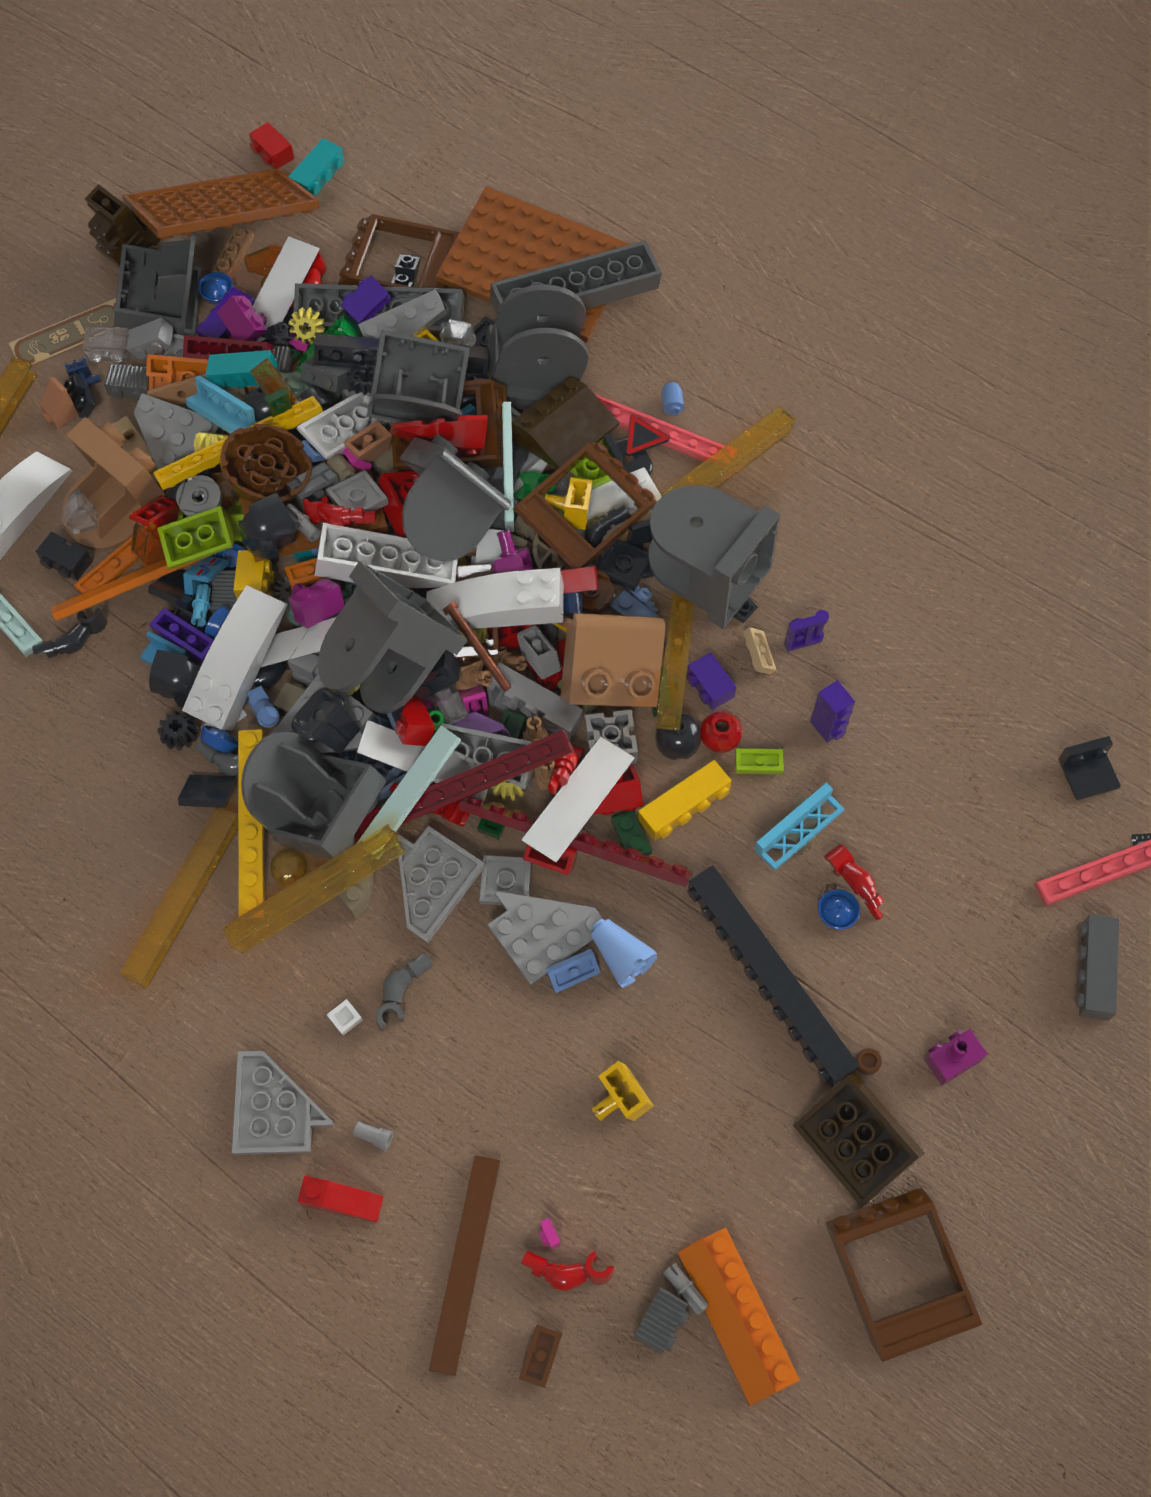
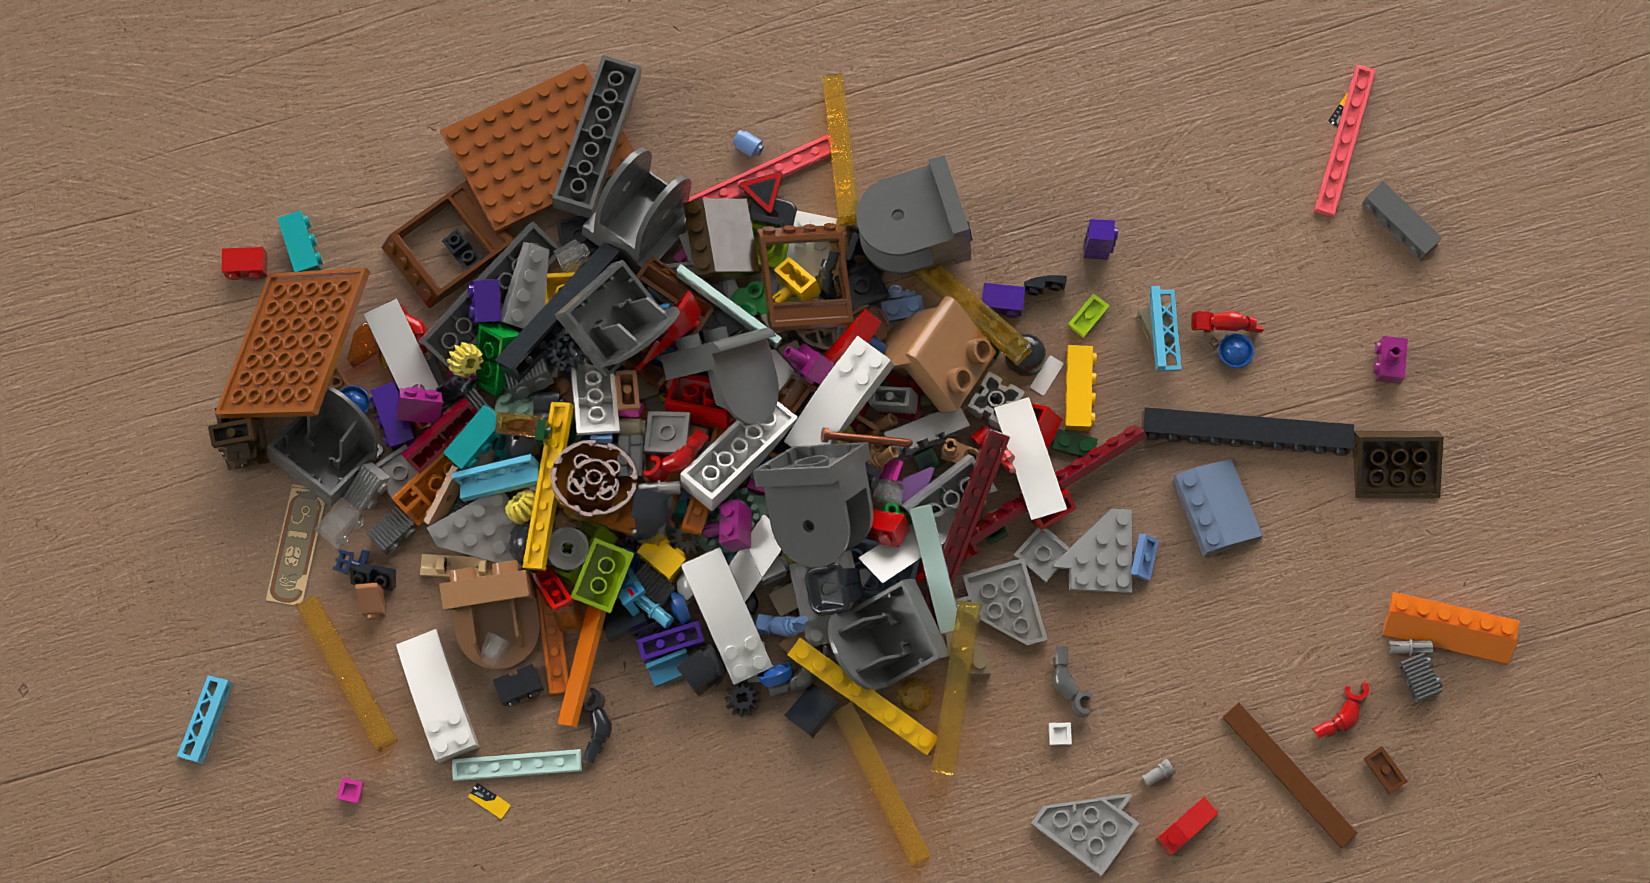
camera: 50 degrees left, 10 degrees up
(548, 1234) = (1312, 707): dark pink plate -> none
(622, 951) = (1159, 514): light blue cone -> none
(623, 1093) = (1256, 588): yellow brick -> none
(675, 768) = (1046, 375): none -> white sticker
(675, 1001) = (1216, 507): none -> sand blue slope
(721, 741) = (1044, 333): red piece -> none
(752, 701) = (1036, 285): none -> black slope
(759, 651) = (1006, 248): tan plate -> none
(800, 631) = (1018, 208): dark purple plate -> none
(869, 1061) = (1351, 415): reddish brown tile -> none
(919, 1324) = (1539, 516): reddish brown window -> none
(1089, 768) = (1266, 108): black bracket -> none

